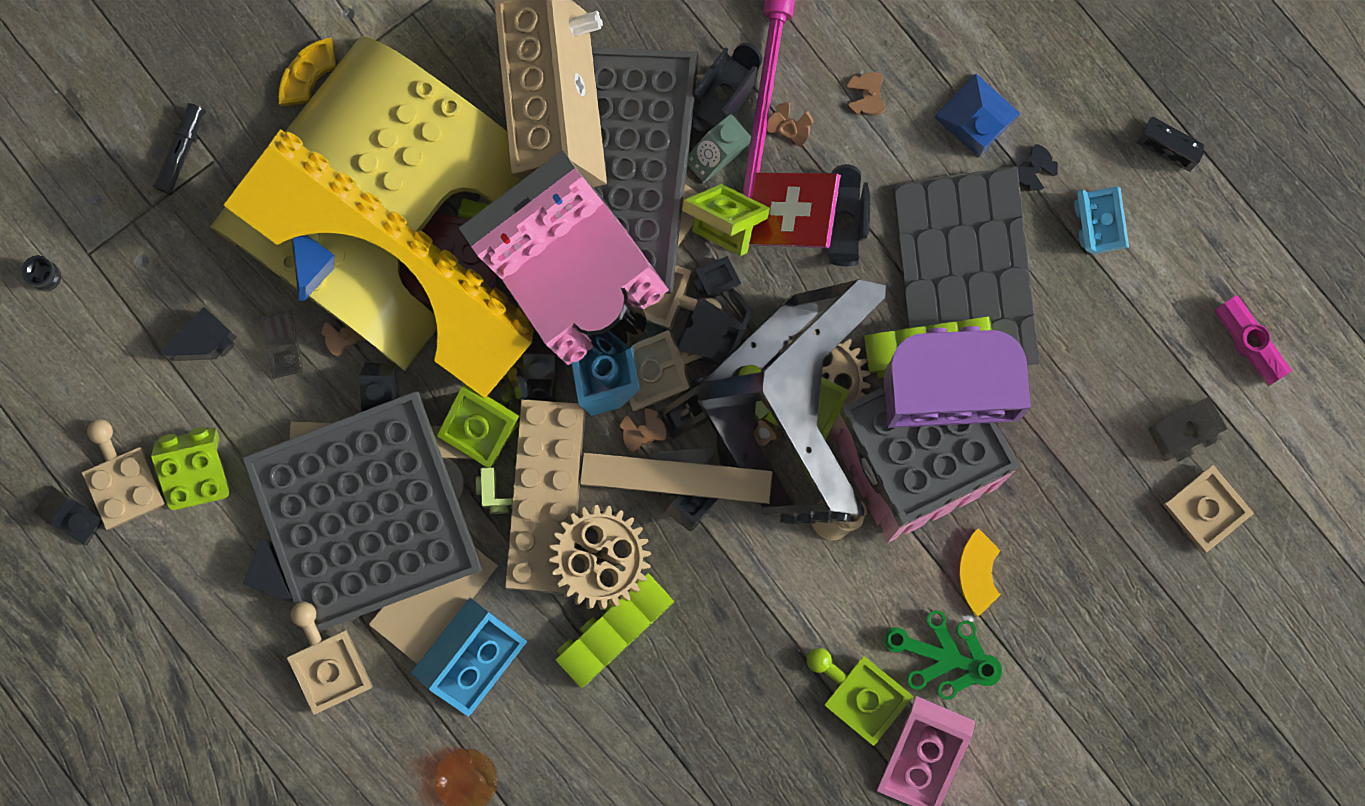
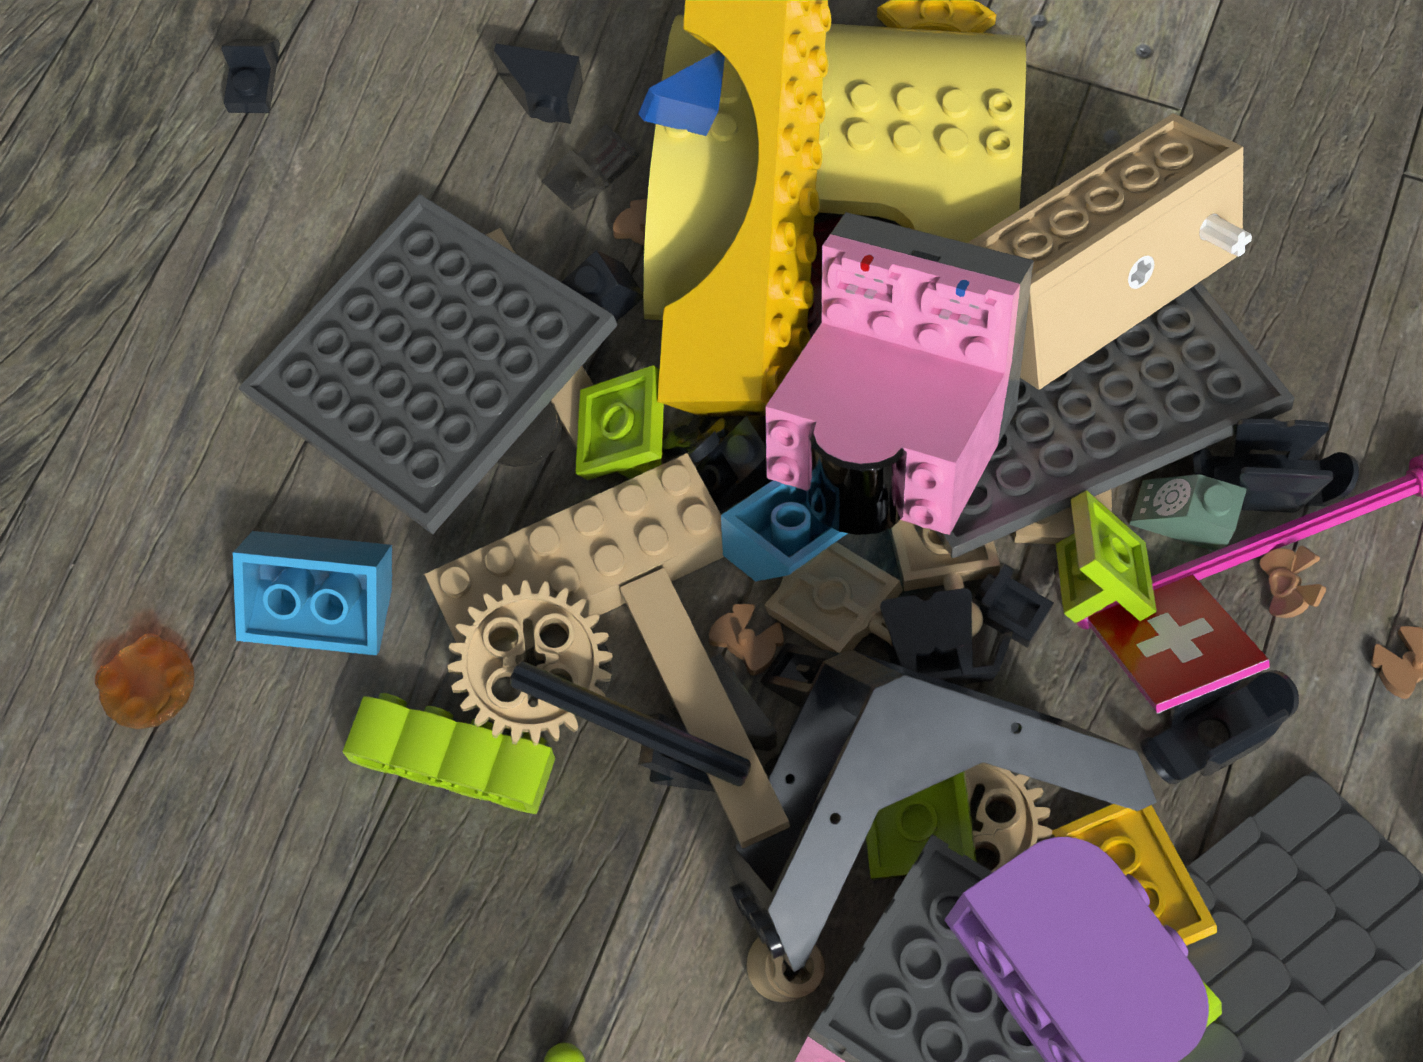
camera: 65 degrees right, 15 degrees down
(124, 483) = (322, 105): tan plate -> none
(190, 468) = (376, 155): lime bracket -> none
(266, 572) = (291, 298): black slope -> none
(329, 667) = (211, 435): tan plate -> none
(421, 619) = (333, 504): tan tile -> none
(487, 487) = (549, 490): yellowish green bracket -> none
(671, 523) = (630, 723): none -> black axle
(903, 309) = (1145, 851): none -> yellow wing

